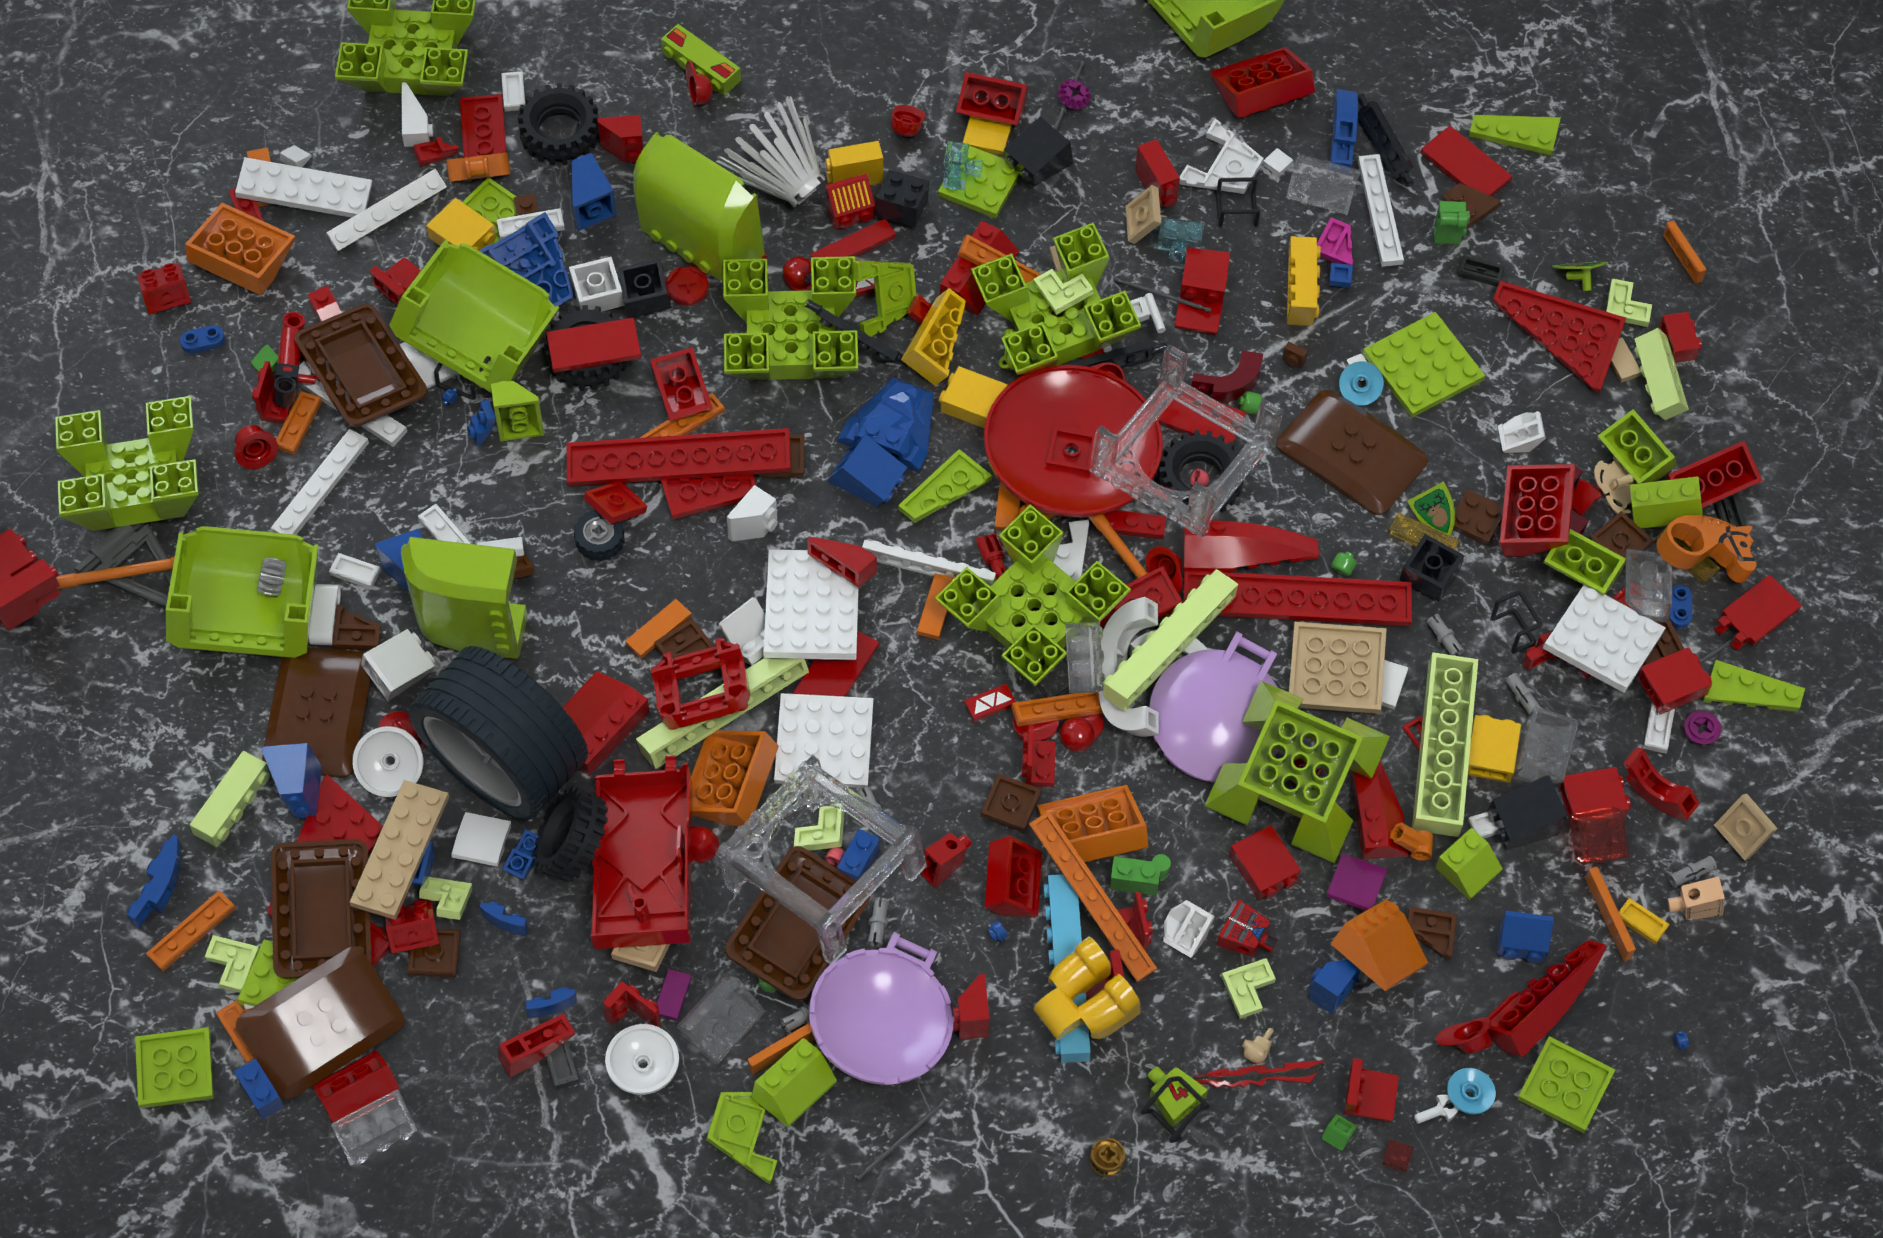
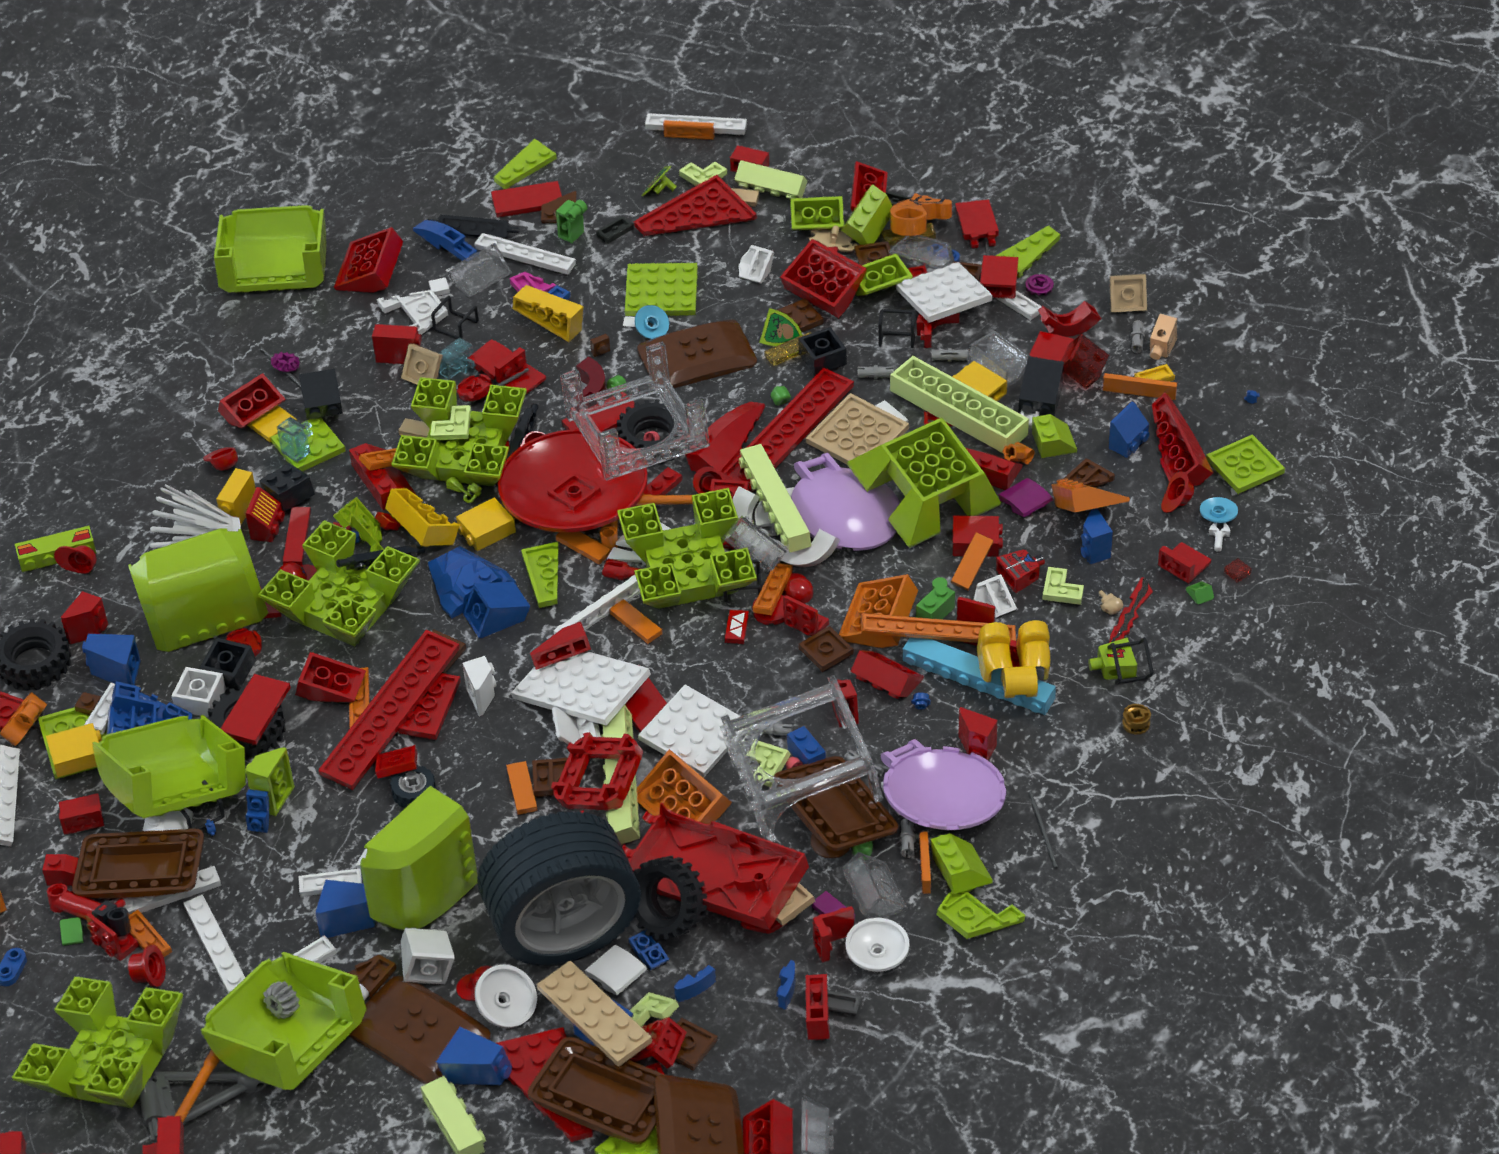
camera: 55 degrees left, 15 degrees down
(1154, 278) = (474, 387): none -> red tile
(1220, 878) = (972, 561): none -> orange tile
(1715, 275) = (721, 125): none -> white plate

